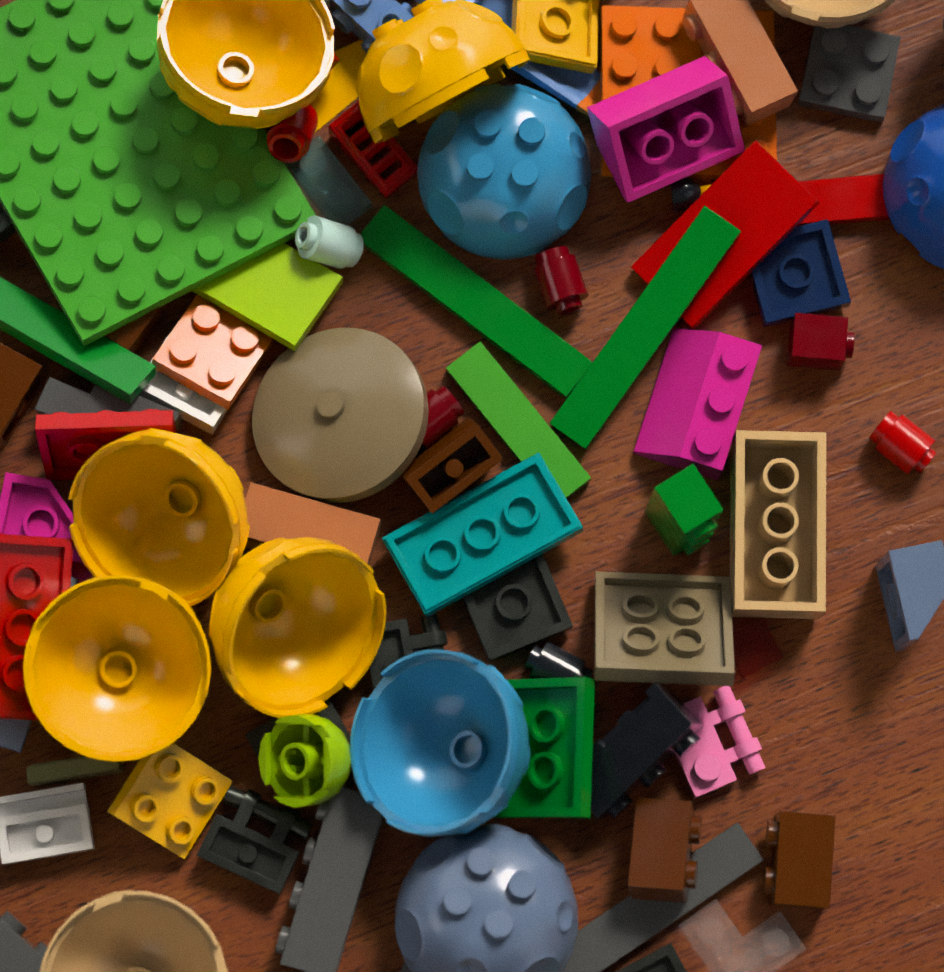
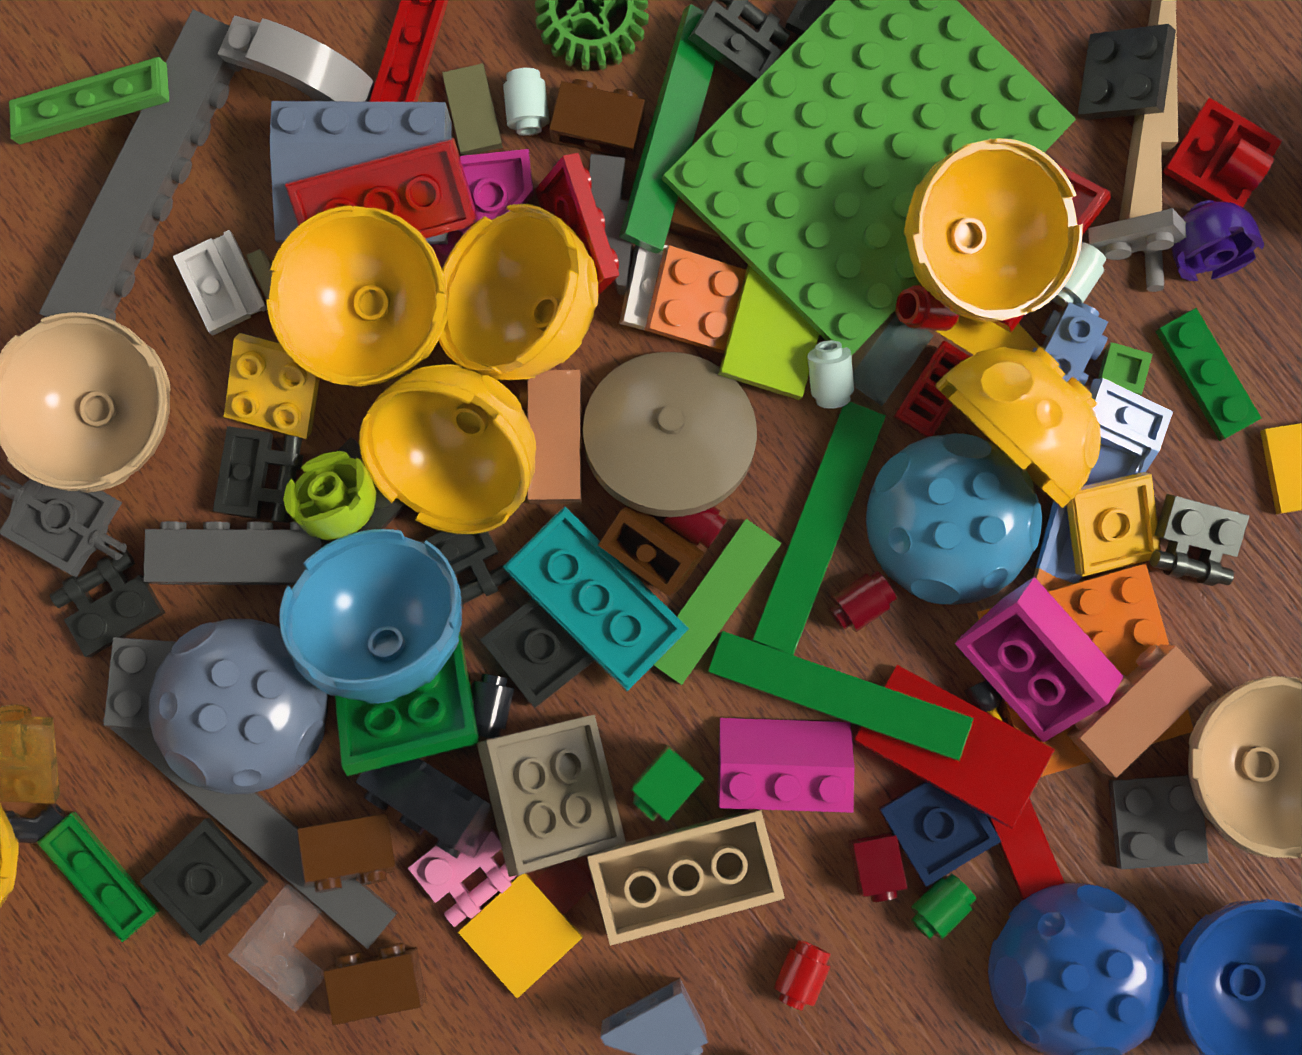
camera: 75 degrees right, 5 degrees up
(790, 705) = (520, 935): none -> yellow tile
(875, 293) = (942, 907): none -> green brick

